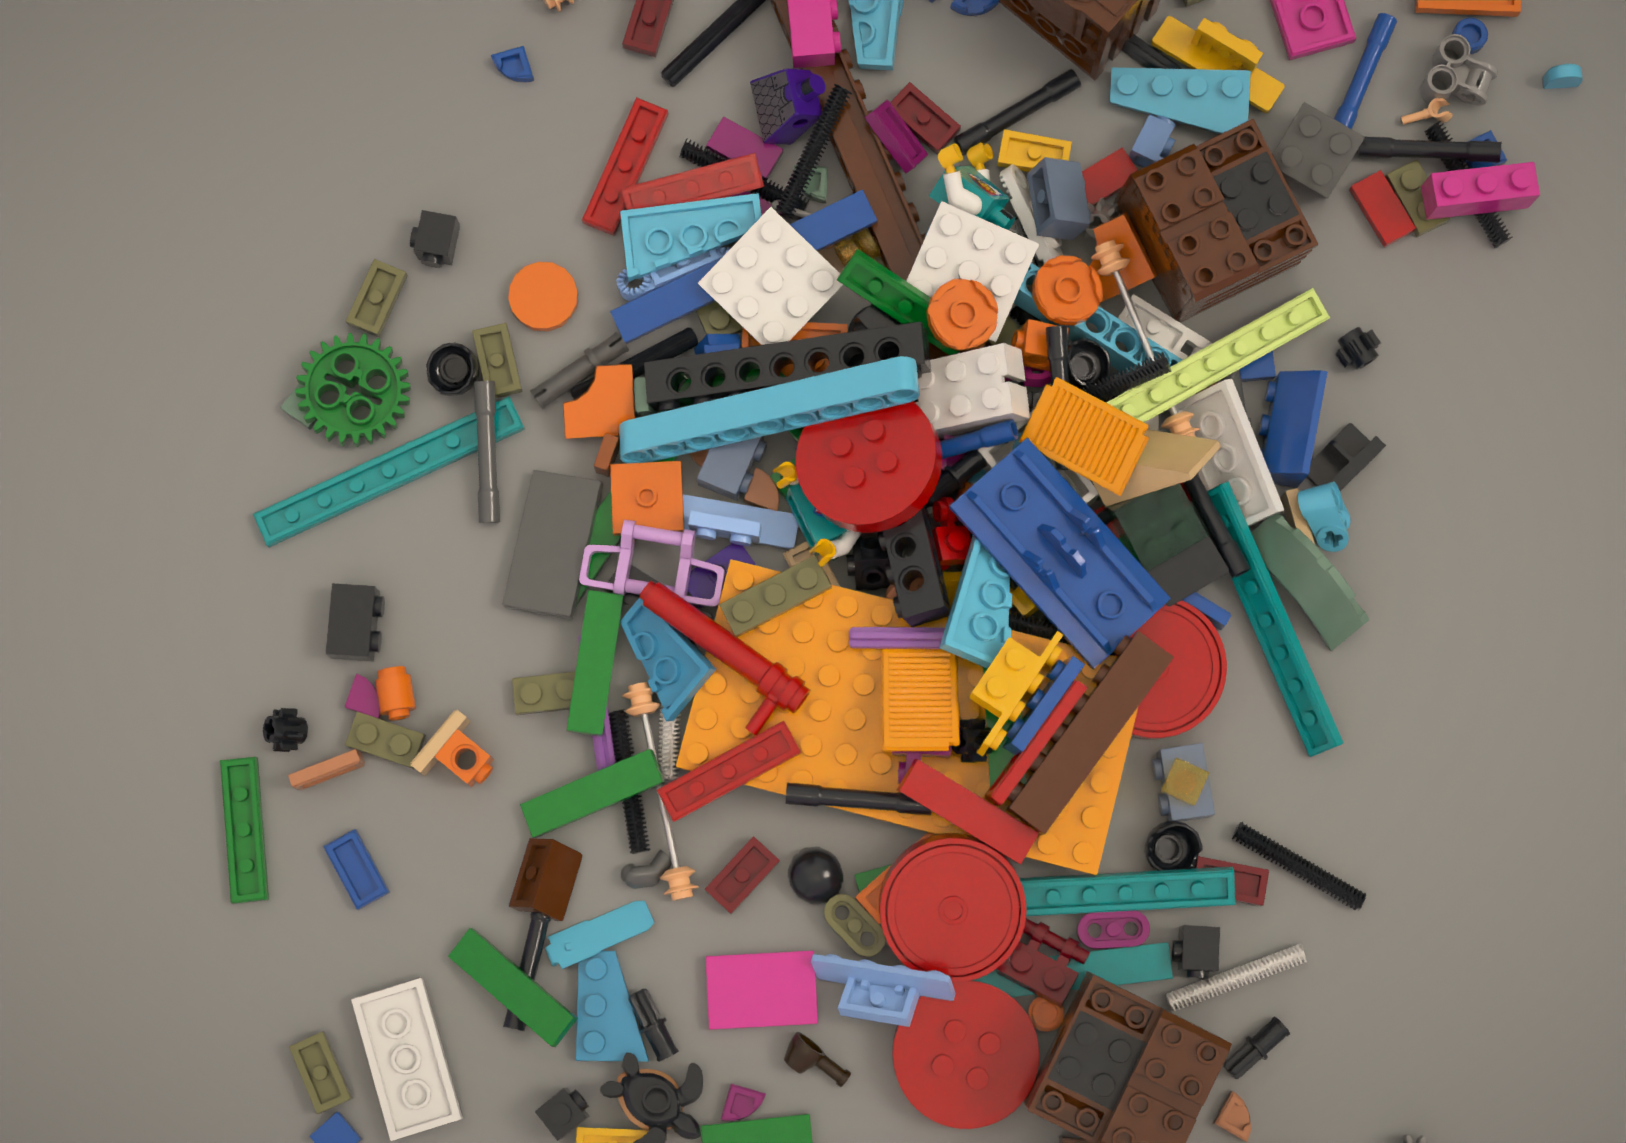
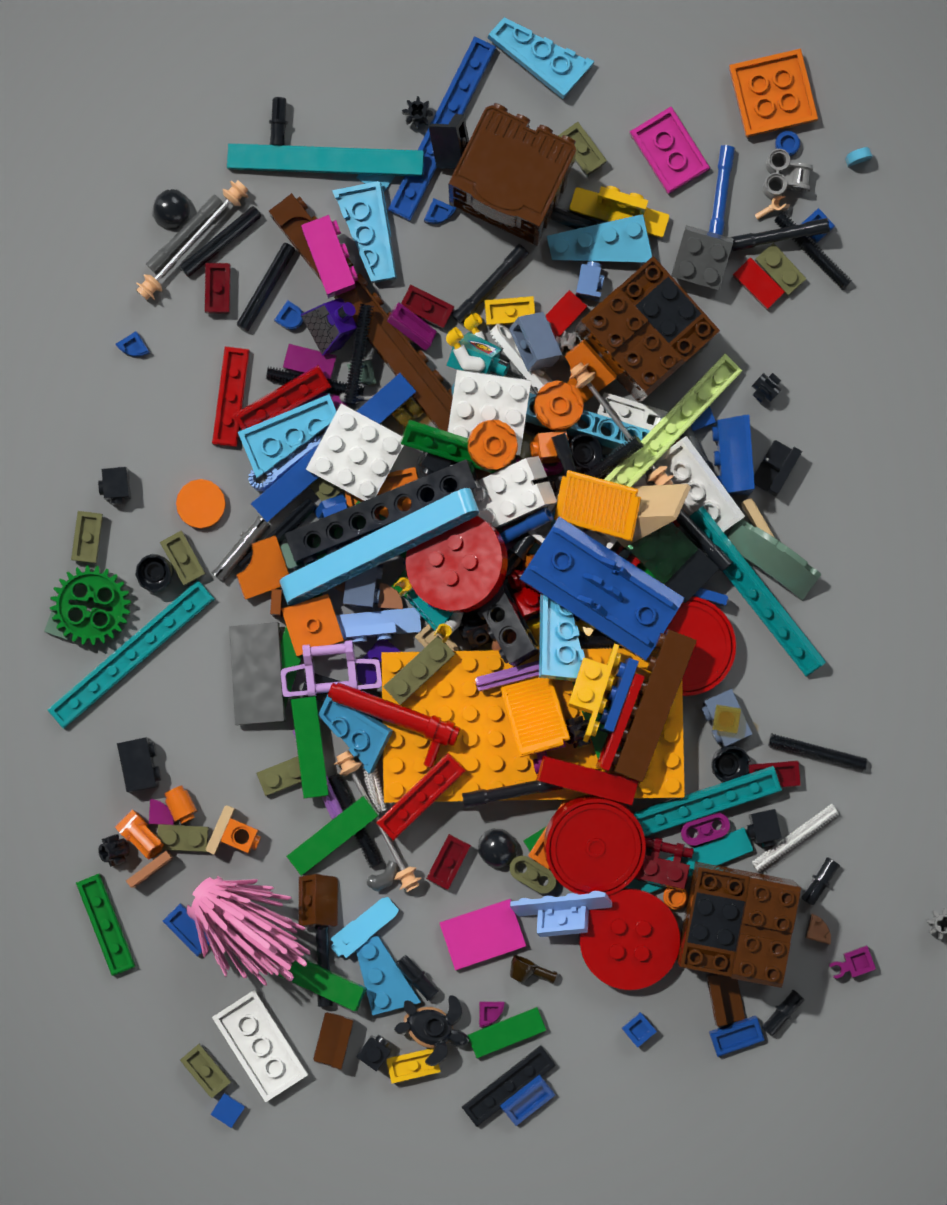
camera: 15 degrees left, 5 degrees up
(323, 712) = (135, 830): none -> orange piece
(428, 886) = (234, 925): none -> bright pink plant
(485, 411) = (202, 649): dark grey piece -> none
(512, 1080) = (333, 1040): none -> reddish brown panel
(734, 83) = (289, 316): none -> blue tile
(1326, 515) = (774, 511): medium azure piece -> none
(1480, 190) = (821, 256): dark pink brick -> none

